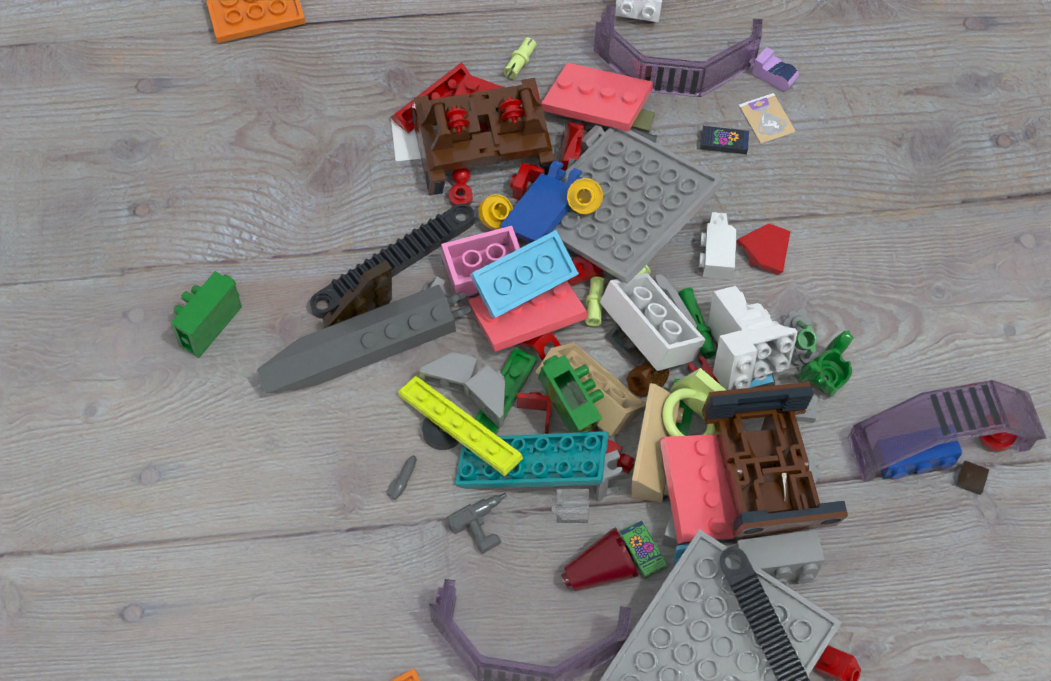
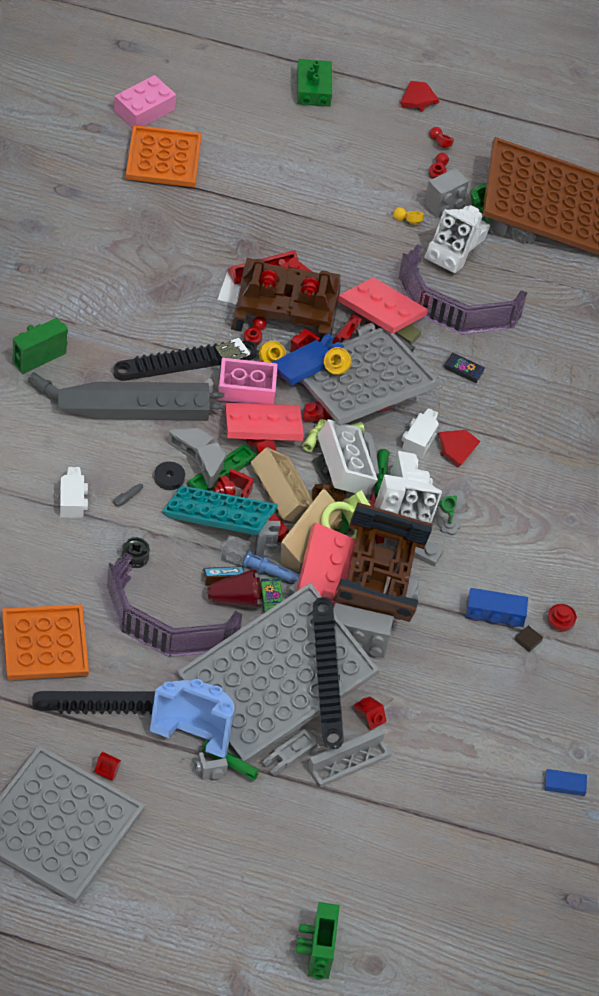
camera: 15 degrees right, 10 degrees down
(235, 366) = (44, 385): none -> dark grey pin
(333, 507) = (72, 494): none -> white hinge
(371, 293) = (156, 369): dark brown plate -> none
(446, 225) = (233, 349): none -> sticker
(448, 559) = (138, 549): none -> pearl dark grey wheel
(460, 425) = (181, 473): neon yellow tile -> none
(471, 517) = (162, 534): dark grey piece -> none
(519, 58) = (340, 262): yellowish green pin -> none
(521, 422) = (224, 486): none -> red plate
(524, 274) = (270, 395): medium azure plate -> none
(569, 544) = (218, 573): none -> slope
(570, 395) = (262, 474): green piece -> none
(614, 511) = (264, 565): none -> medium blue pin
(767, 118) = (504, 365): sticker -> none
(774, 70) = (524, 334): lavender leg -> none
(829, 365) = (459, 531): green hair -> none
(943, 418) = (526, 581): clear purple panel -> none

